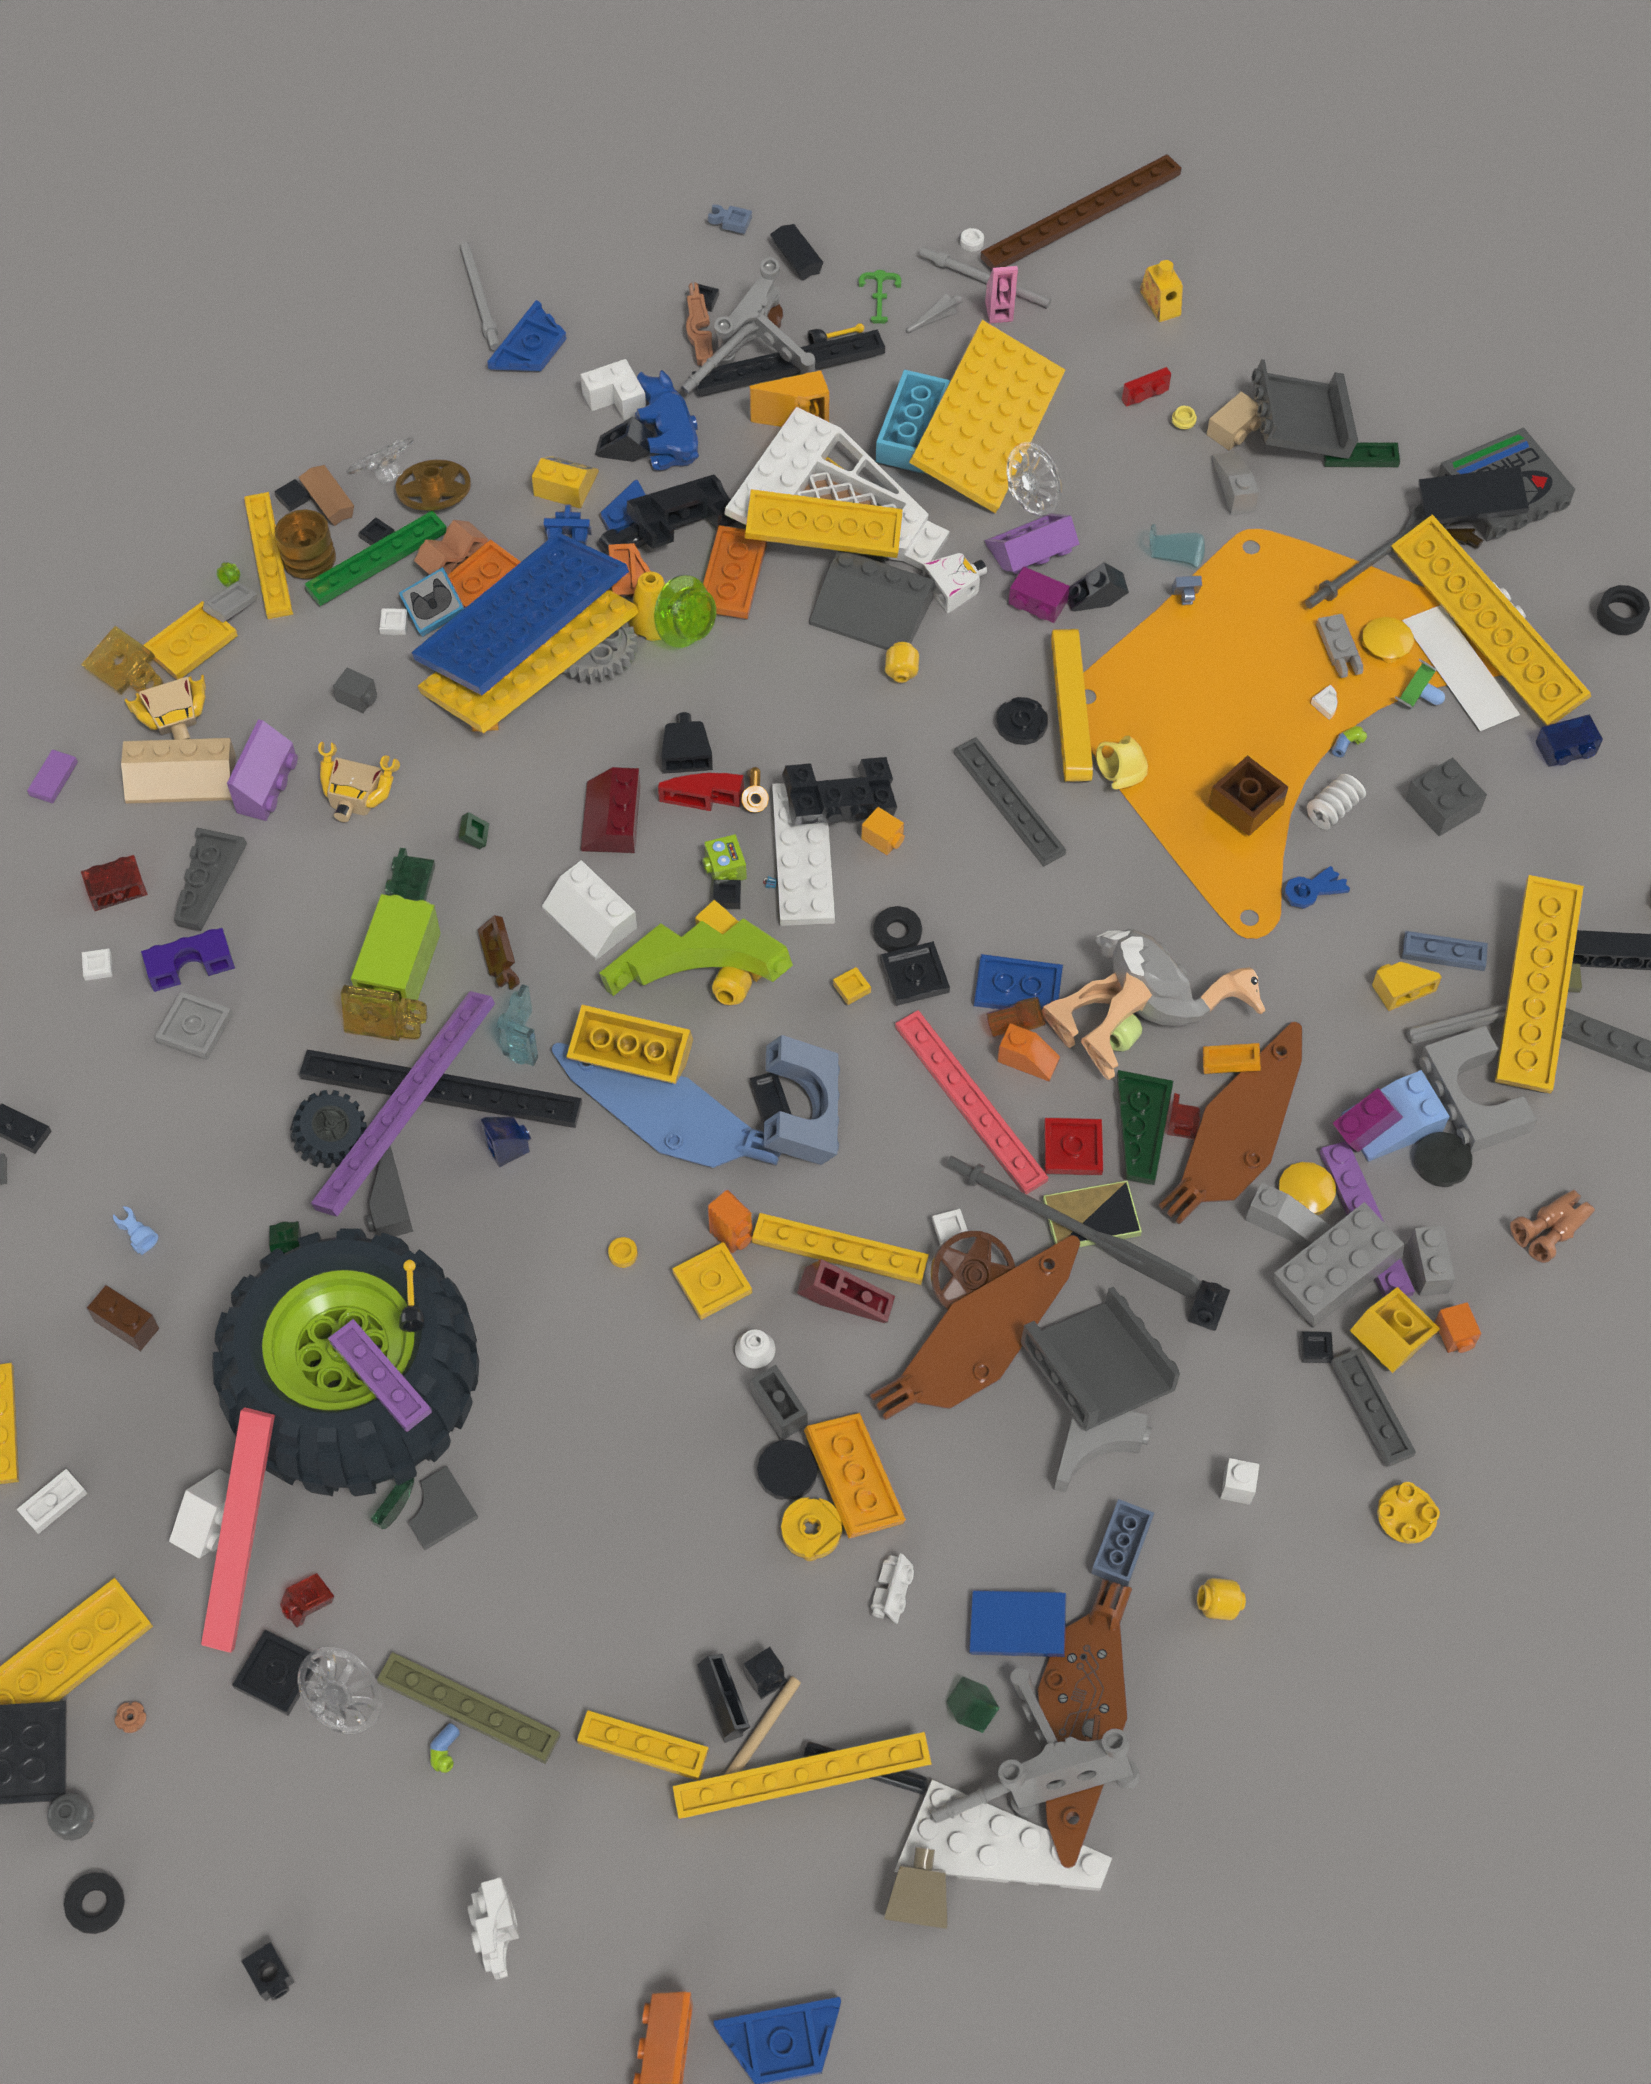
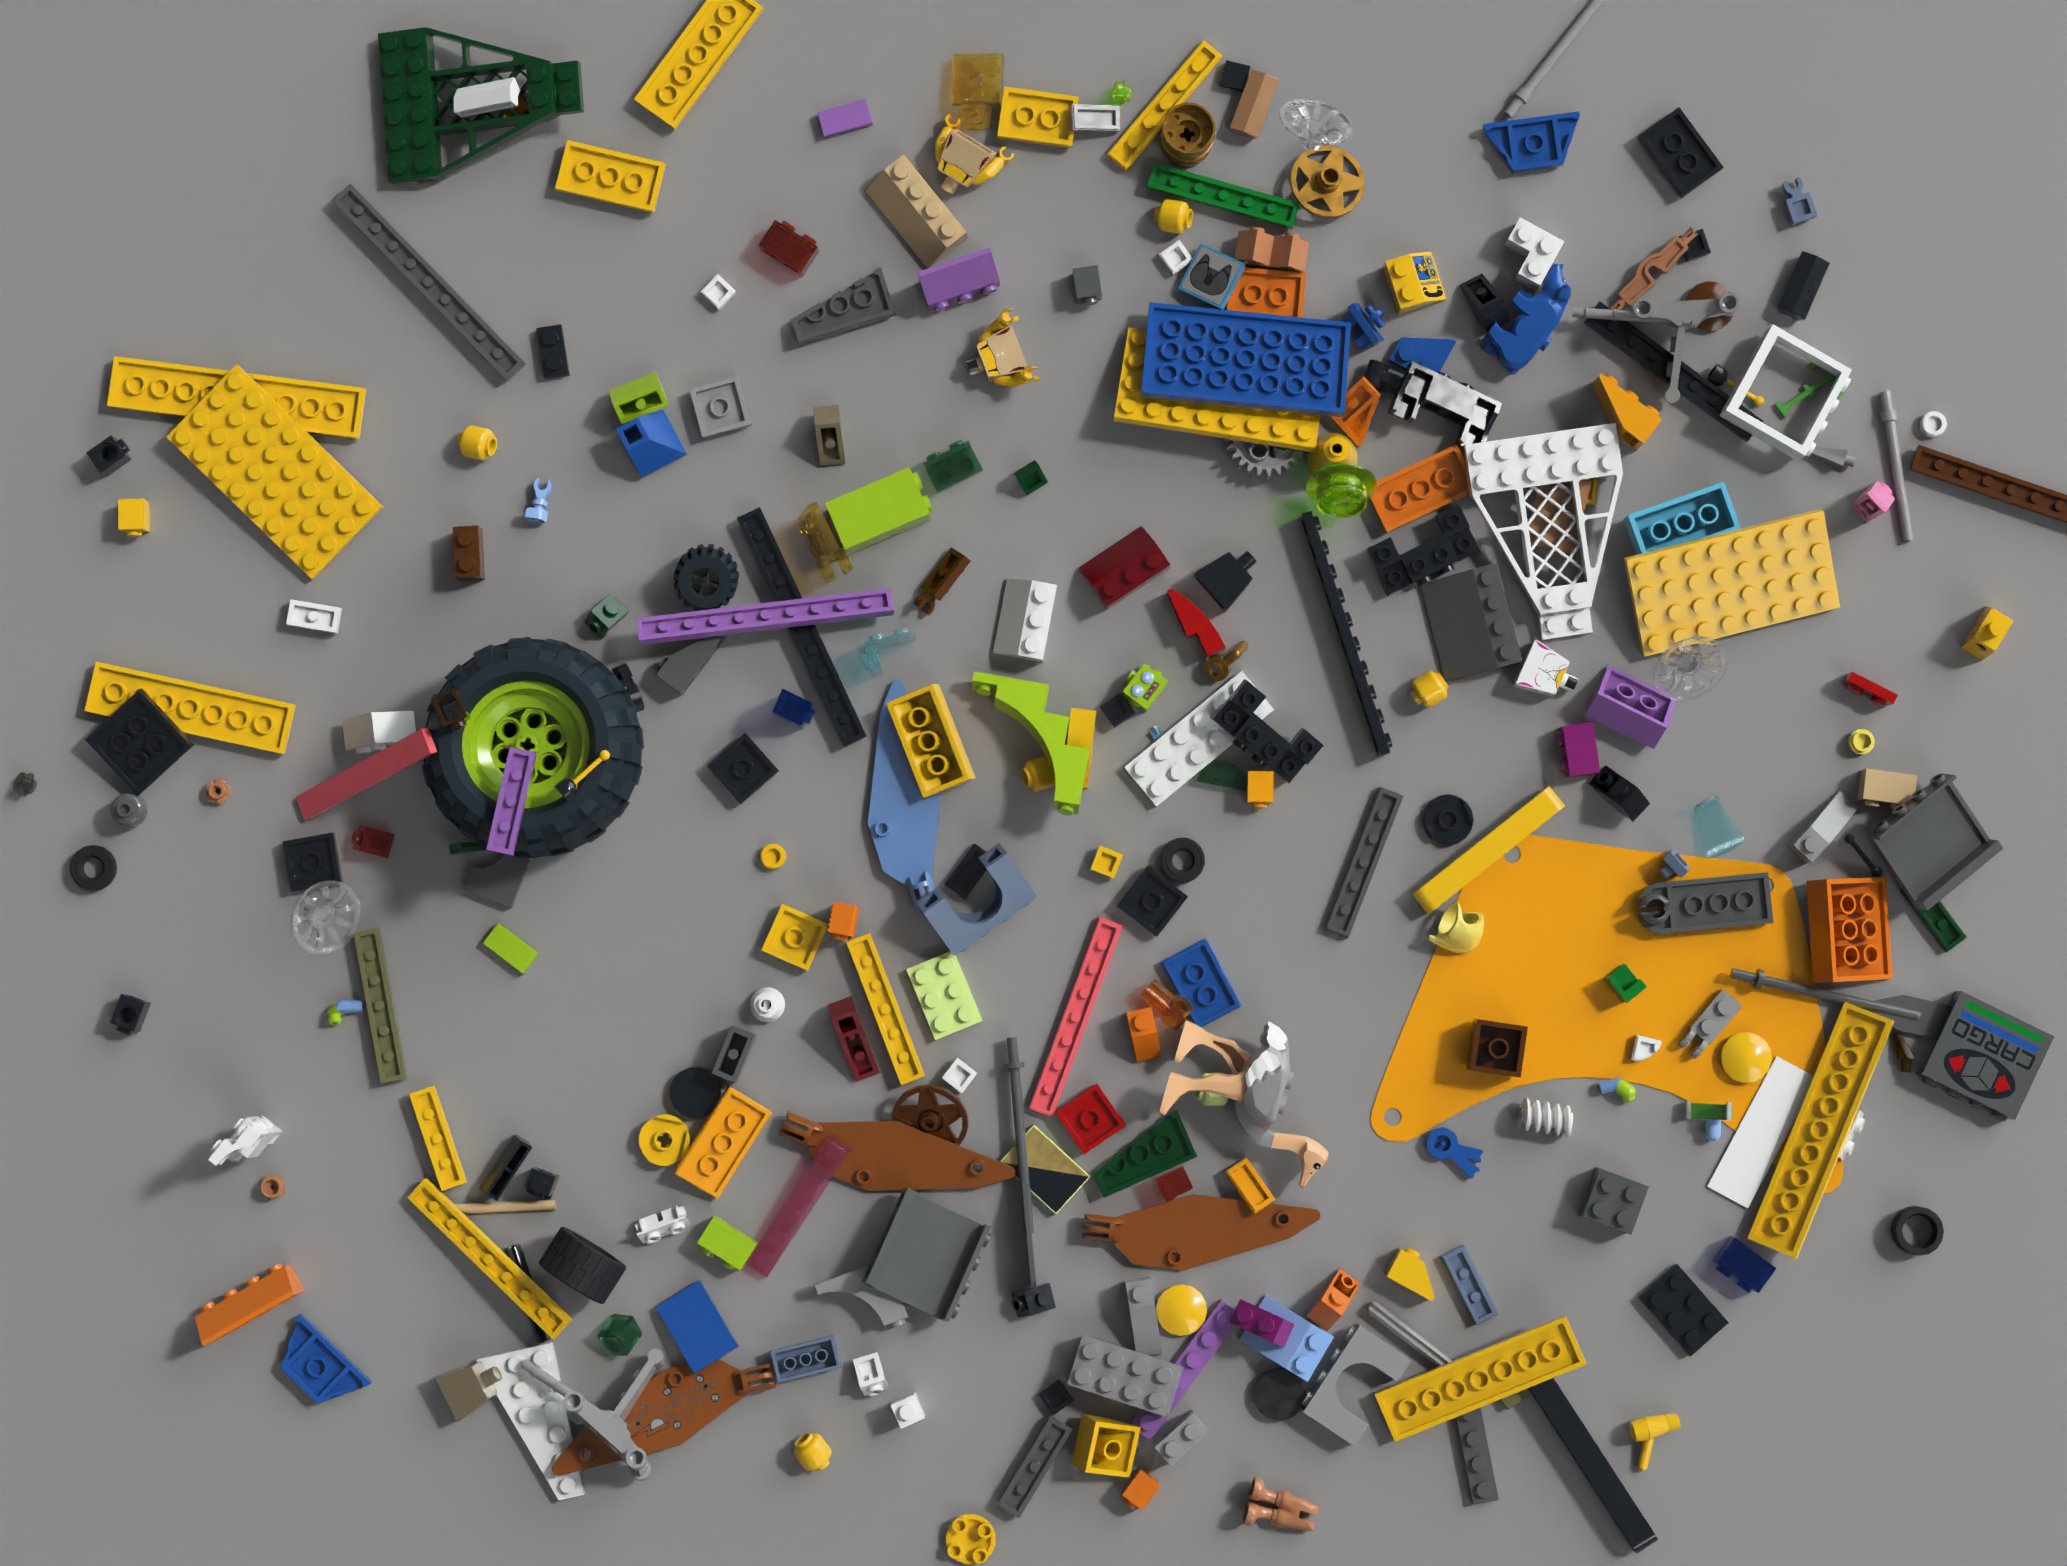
camera: 55 degrees right, 25 degrees up
(34, 1242) = (477, 443): none -> yellow head
(123, 1079) = (638, 397): none -> lime brick
(166, 960) = (751, 342): dark purple arch -> none
(169, 1101) = (651, 442): none -> blue slope
(248, 1368) = (451, 710): none -> dark brown window
(297, 955) = (829, 435): none -> dark tan slope
(359, 598) = (1173, 216): none -> yellow head
(375, 531) = (1249, 174): black tile -> none
(515, 1543) = (511, 948): none -> lime tile
(522, 1221) = (743, 768): none -> black plate
(553, 1950) = (265, 1186): none -> nougat plate
(626, 262) = (1680, 152): none -> black plate
(793, 605) = (1427, 559): none -> black bracket
(806, 692) = (1349, 643): none -> black plate
(823, 523) = (1505, 537): yellow plate -> none
(850, 853) = (1224, 775): none -> clear green tile
(866, 1194) = (944, 995): none -> yellowish green plate
(876, 330) = (1760, 430): none -> white window
(877, 1678) = (582, 1265): none -> black tyre
(956, 1538) = (727, 1243): none -> lime brick
(968, 1449) = (798, 1206): none -> clear pink plate
(1180, 1493) = (870, 1374): none -> white bracket
(1236, 588) = (1706, 903): none -> dark grey plate
(1262, 683) = (1625, 983): none -> green panel
(1297, 470) = (1876, 871): none -> black hinge
(1331, 511) = (1849, 929): none -> orange slope
(1385, 1057) = (1333, 1300): none -> orange slope
(1474, 495) = (1940, 1041): black tile -> none
(1578, 809) = (1683, 1309): none -> black plate

